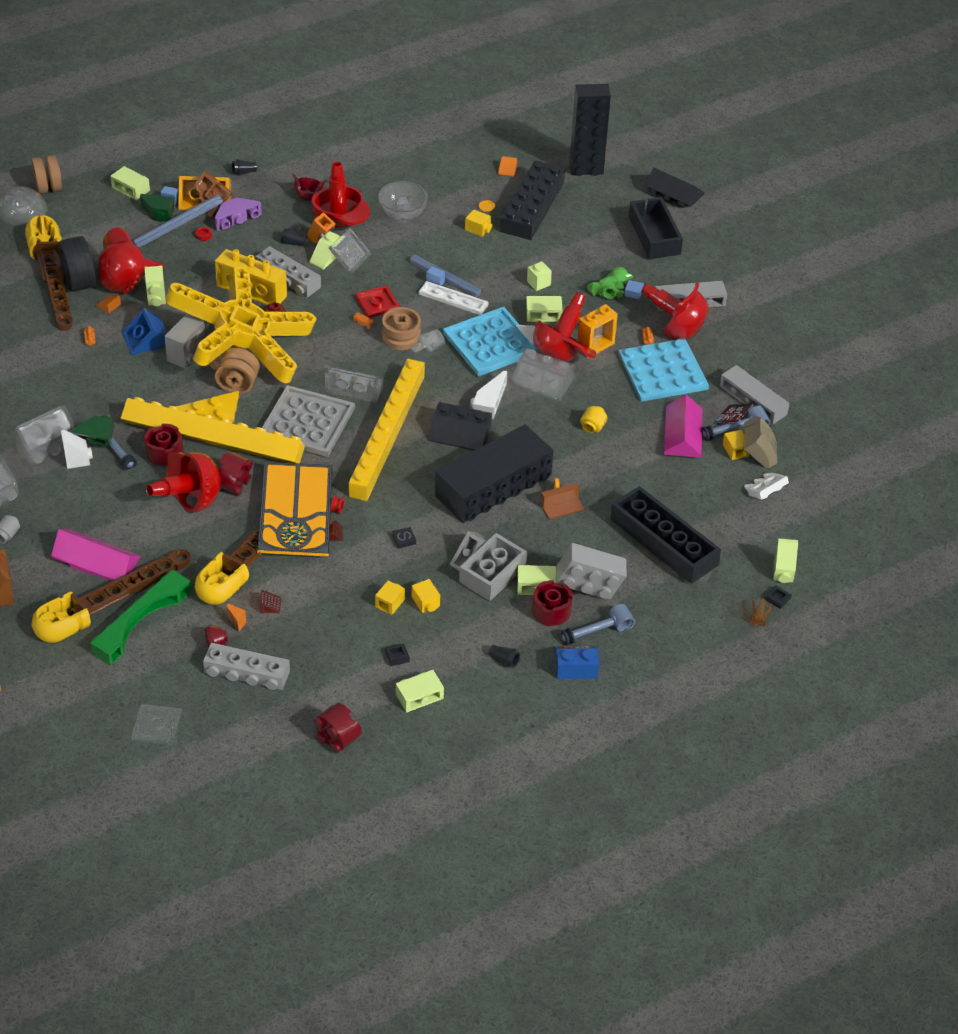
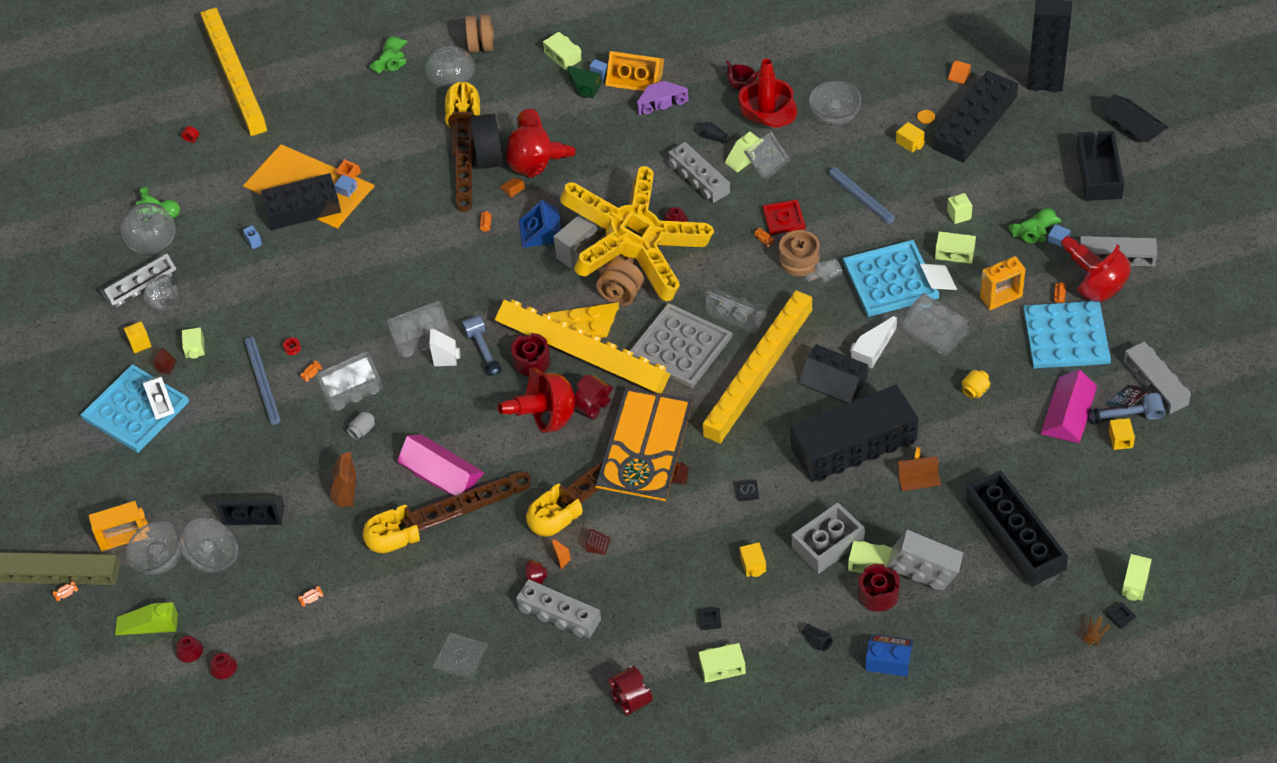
camera: 20 degrees right, 5 degrees up
(96, 430) = (466, 331): dark green slope -> none
(155, 285) = (559, 173): yellowish green brick -> none
(167, 592) = (501, 516): green arch -> none
(178, 221) = (600, 101): sand blue axle -> none
(203, 234) = (624, 117): red tile -> none
(208, 187) = (640, 72): dark orange slope -> none
(242, 167) = (680, 43): black cone -> none
(266, 281) = (669, 182): yellow piece -> none
(320, 227) = (741, 126): orange leg -> none
(337, 504) = (688, 444): red bush -> none
(390, 597) = (716, 555): yellow brick -> none
(435, 276) = (850, 196): medium blue piece -> none
(453, 298) = (864, 222): white tile -> none
(467, 548) = (810, 510): light grey slope -> none
(558, 340) = (959, 289): red piece -> none
(619, 617) = (946, 615): sand blue piece -> none
(760, 441) = (1146, 436): dark tan slope -> none
(766, 486) = (1142, 486): white plate -> none

